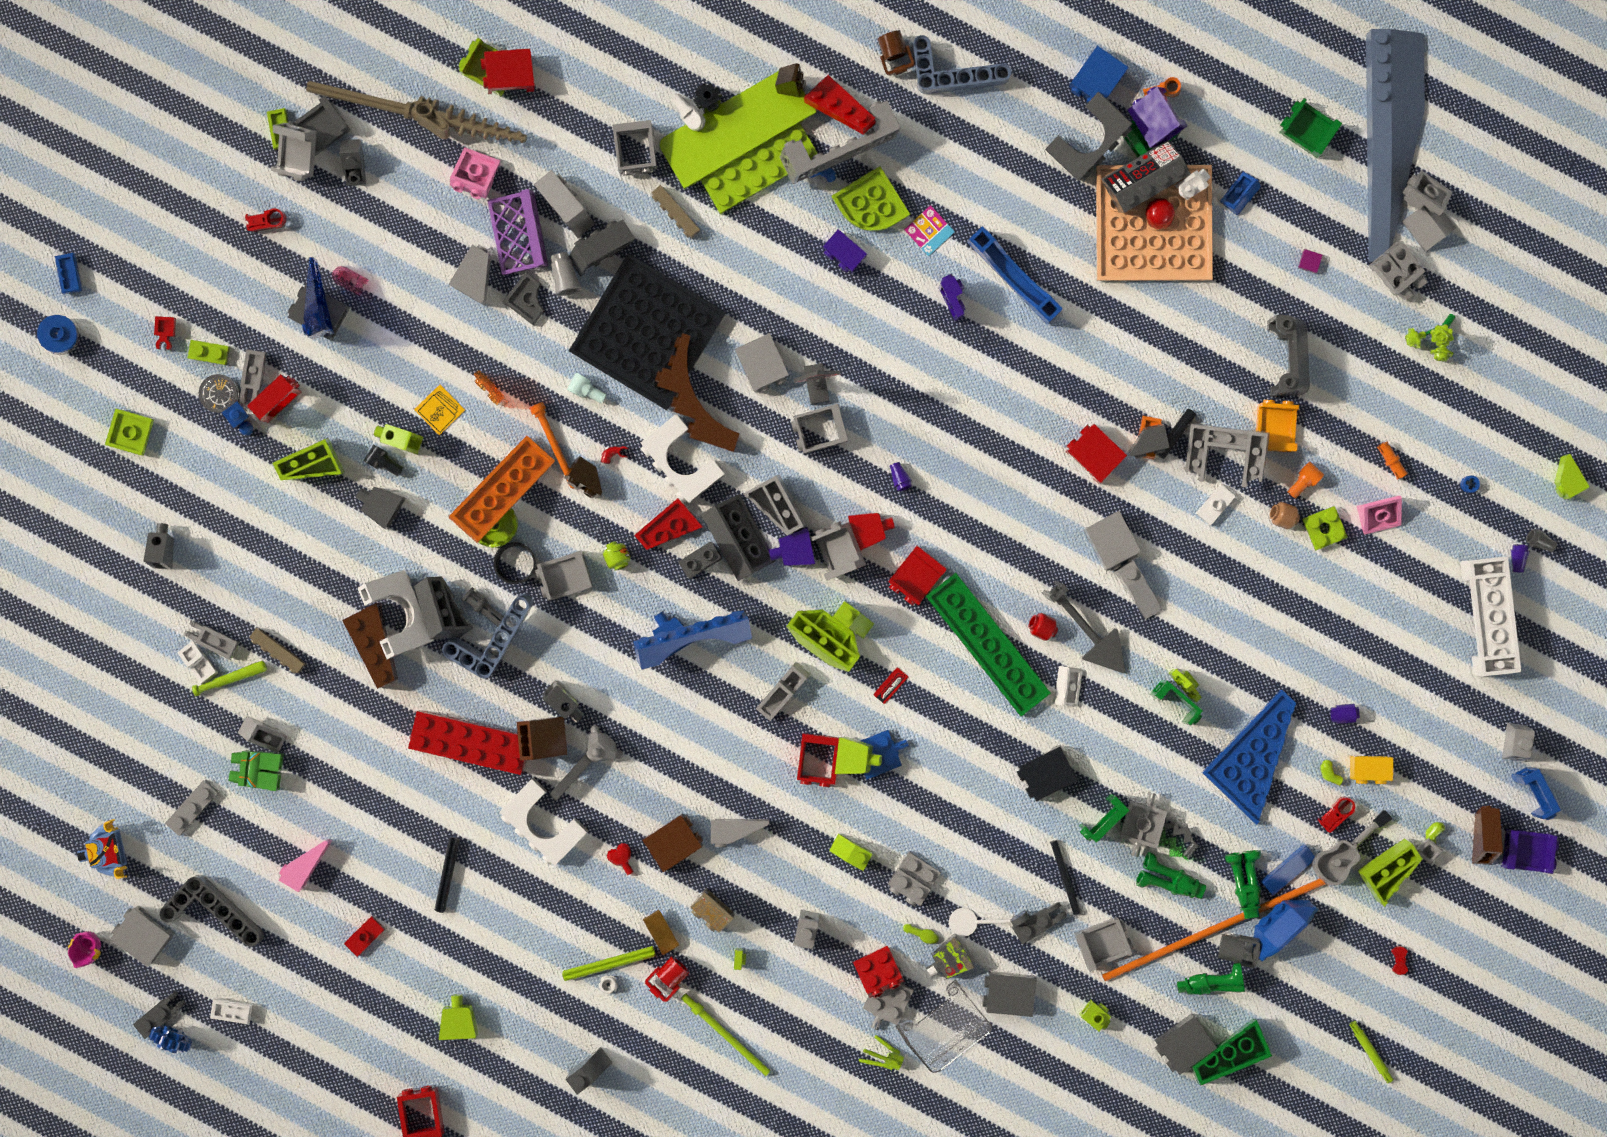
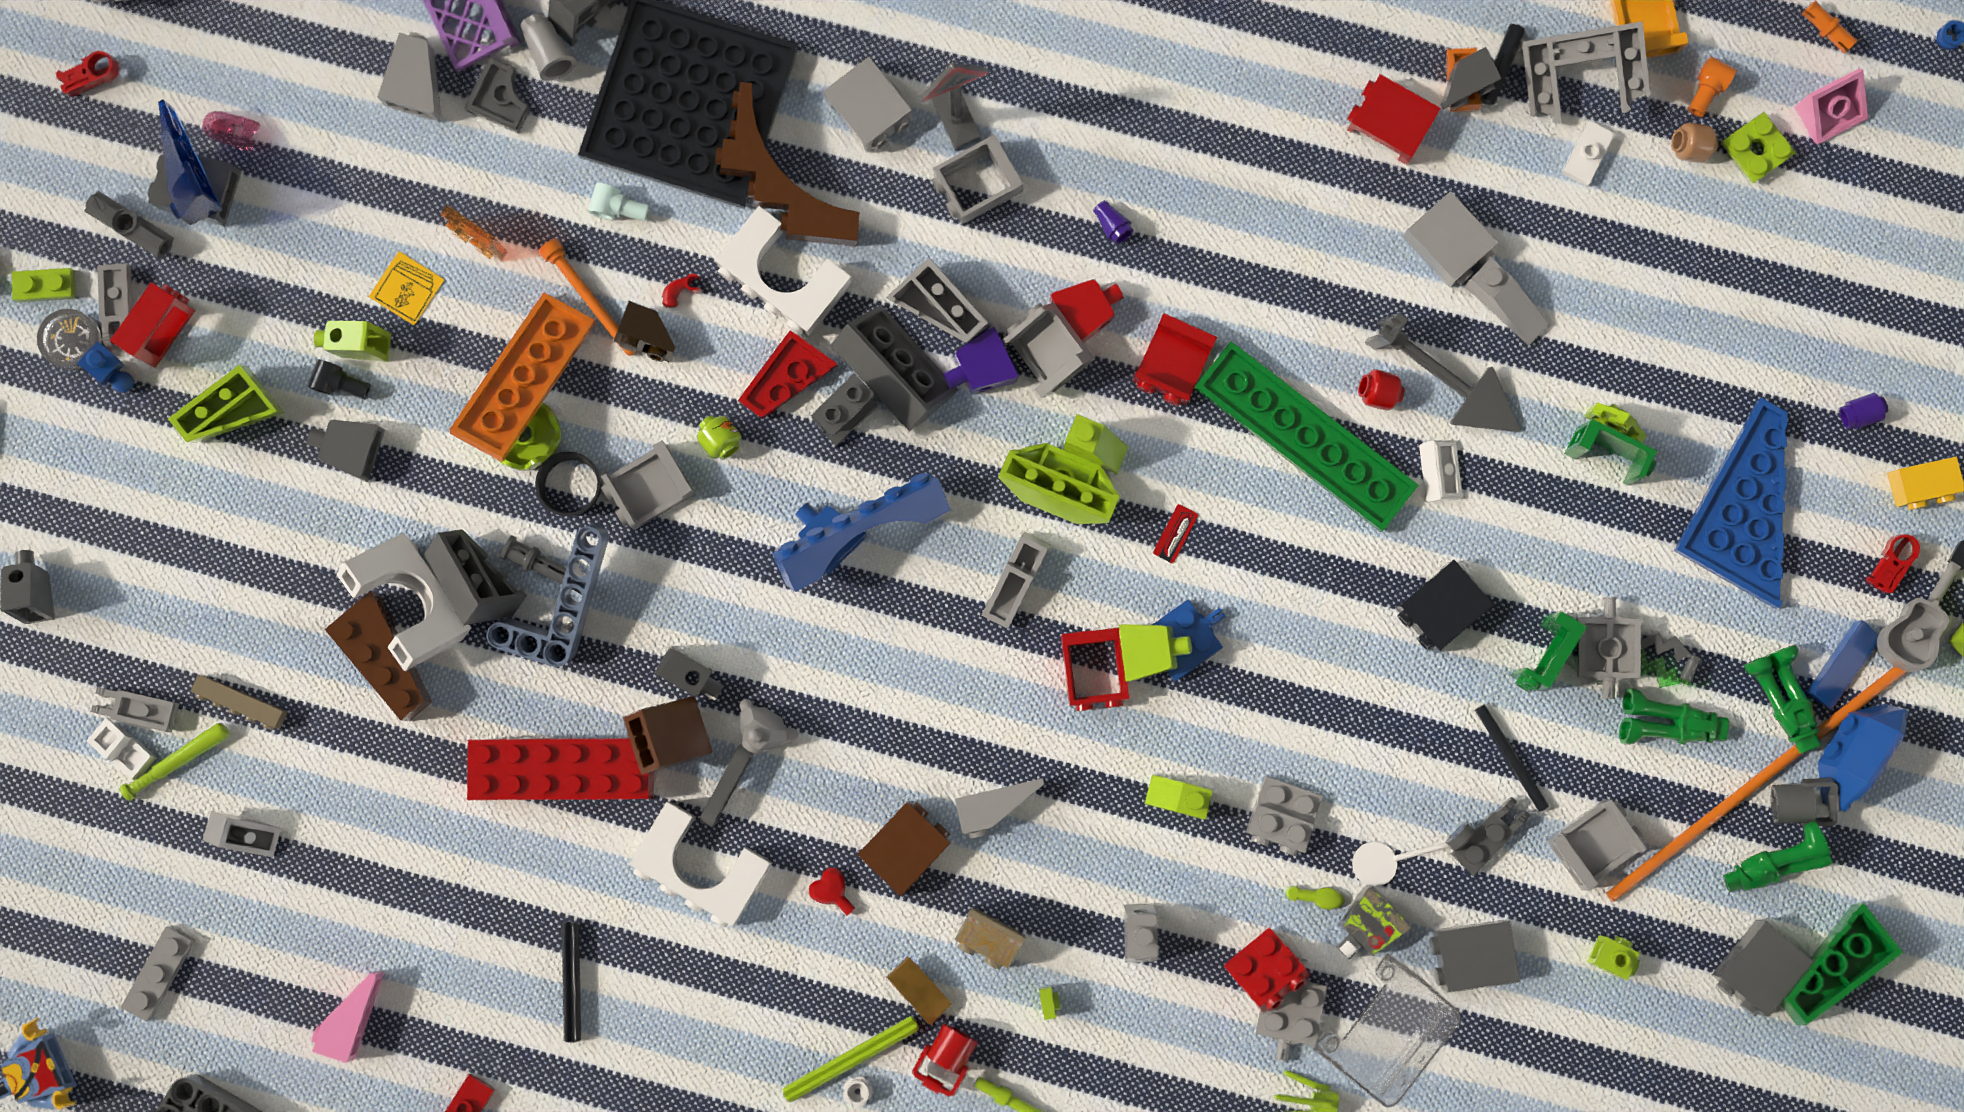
camera: 10 degrees left, 5 degrees down
(251, 769) = (235, 889): bright green hips -> none
(264, 319) = (116, 216): none -> dark grey piece
(1328, 773) = (1863, 505): lime arm -> none

